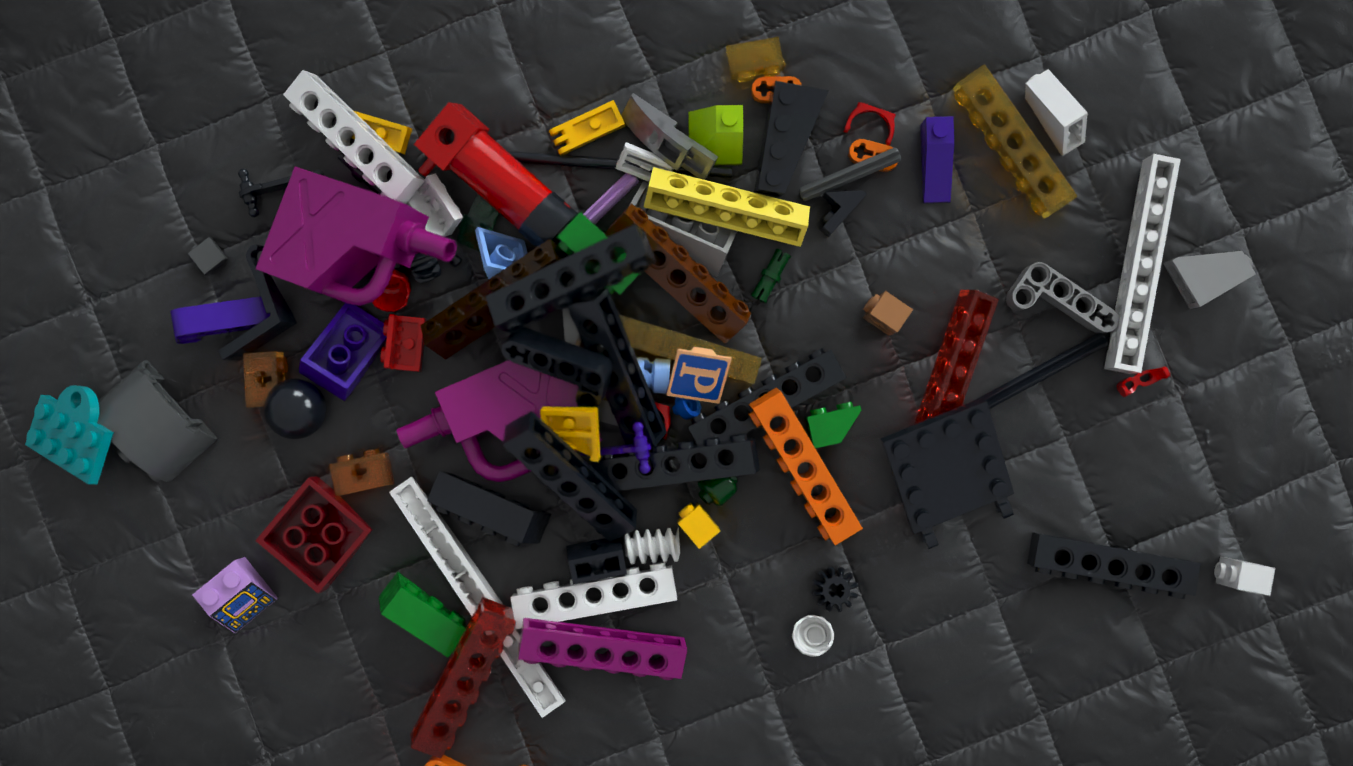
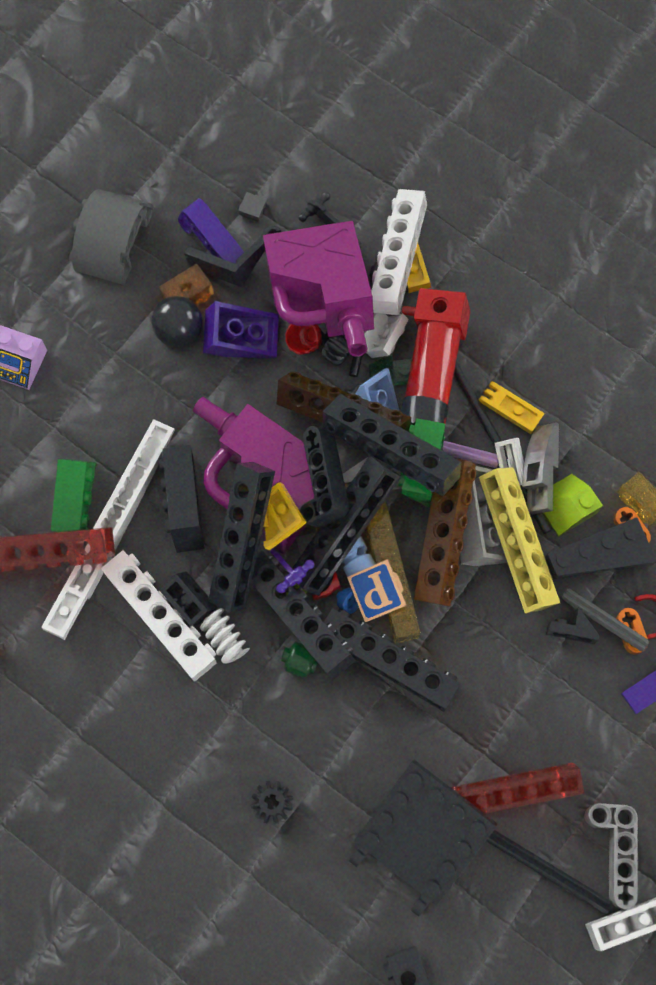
camera: 60 degrees right, 15 degrees down
(70, 432) = (72, 182): teal plate -> none
(315, 534) = (91, 385): dark red slope -> none
(345, 475) = (160, 405): clear orange brick -> none
(403, 343) = (269, 367): red bracket -> none
(592, 638) = (132, 649): magenta brick -> none
(697, 524) = (260, 659): yellow brick -> none
(771, 275) = (488, 606): dark green pin -> none
(813, 635) = (224, 805): white hair -> none
(831, 427) = (400, 722): green slope -> none
(844, 521) = (331, 777): orange brick -> none
(886, 312) = (516, 710): medium nougat brick -> none
(1155, 375) = (609, 971): red cap -> none

